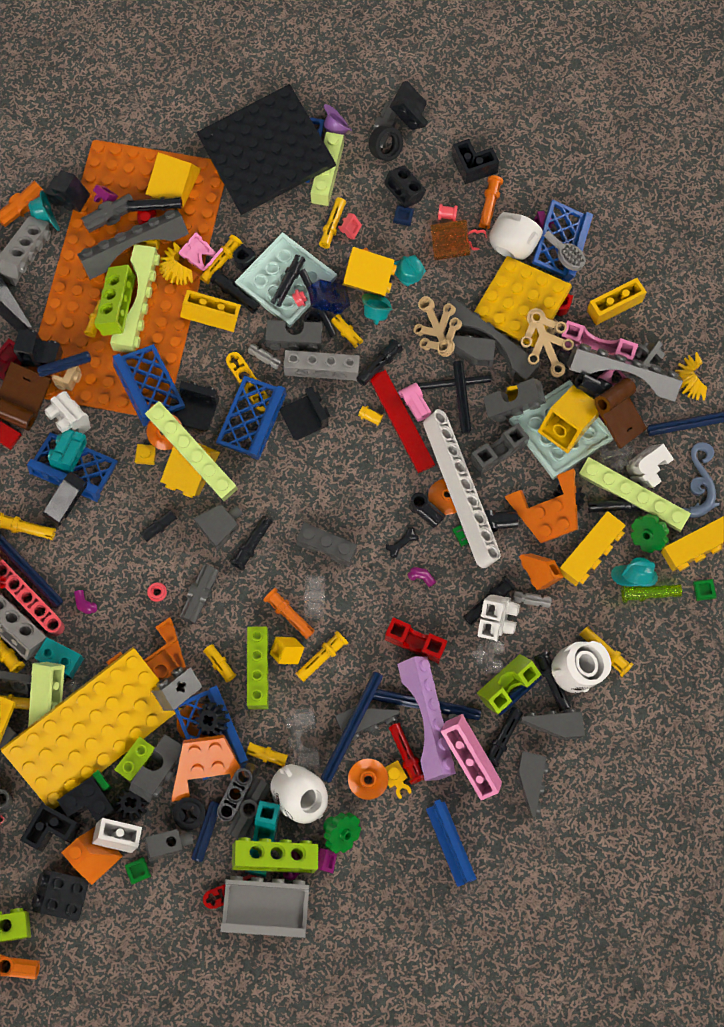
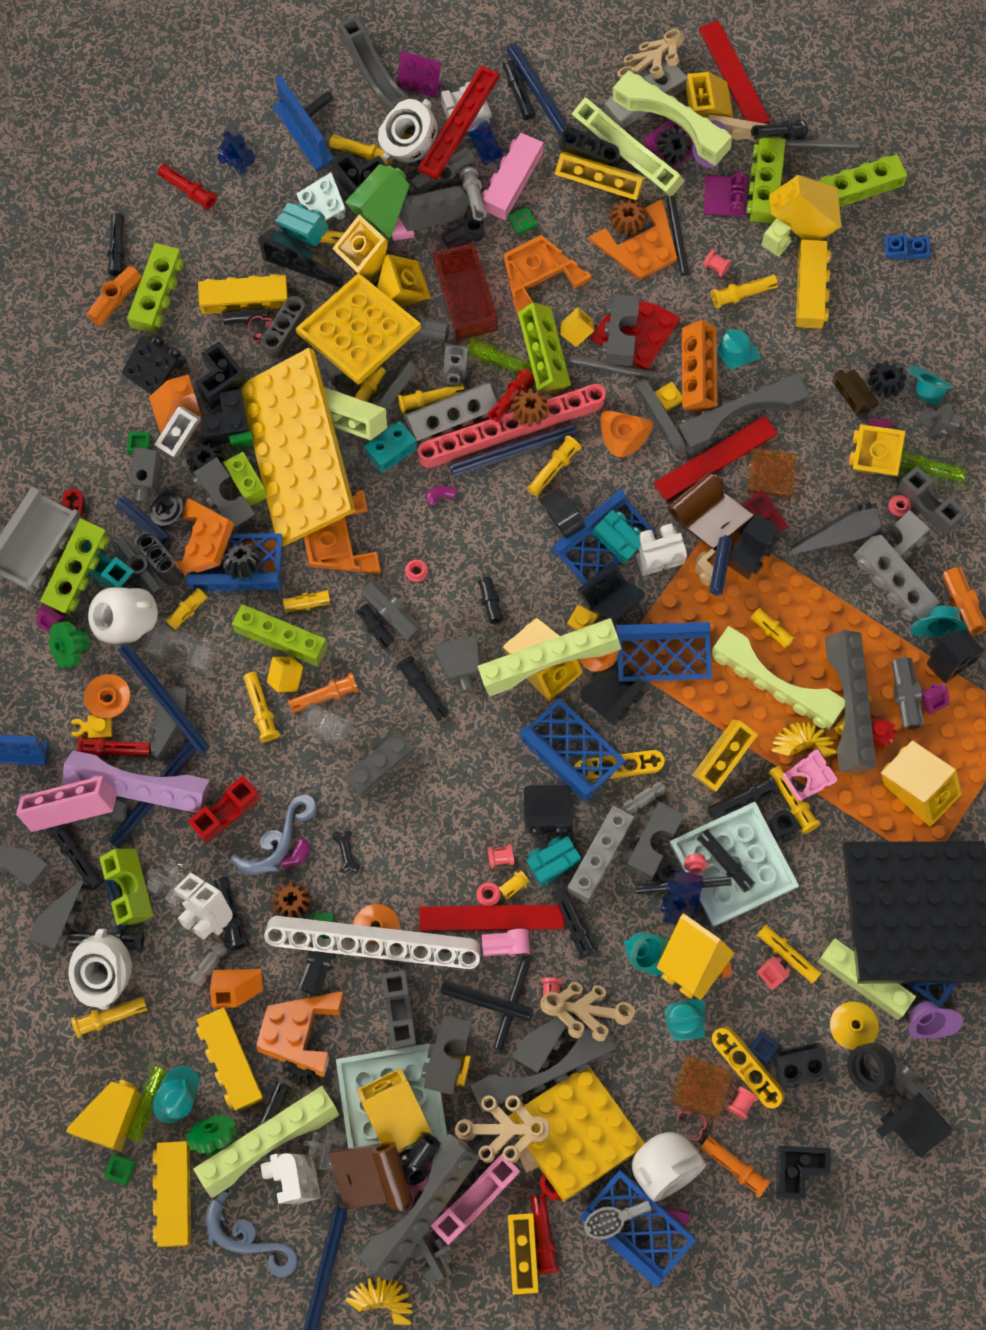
camera: 115 degrees right, 0 degrees up
(115, 300) = (780, 651): lime brick -> none
(118, 436) = (609, 593): none -> black bracket
(154, 204) = (889, 748): black pin -> none
(177, 688) = (291, 552): brick -> none
(217, 601) = (375, 626): none -> black pin
(340, 395) = (553, 860): none -> teal brick
(346, 330) = (635, 906): yellow pin -> none
(354, 432) = (500, 856): none -> coral bush
(360, 175) = (842, 1027): none -> yellow dish
(385, 424) = (488, 887): none -> coral plate
(421, 218) = (745, 1069): none -> yellow beam
(428, 511) = (365, 894): black piece -> none
(433, 359) = (551, 985): none -> coral bush
(441, 589) = (256, 867): none -> sand blue plant
(449, 561) = (284, 895): none -> dark orange gear
(582, 306) = (545, 1247): none -> red pin
(678, 609) = (108, 1116): none -> yellow slope

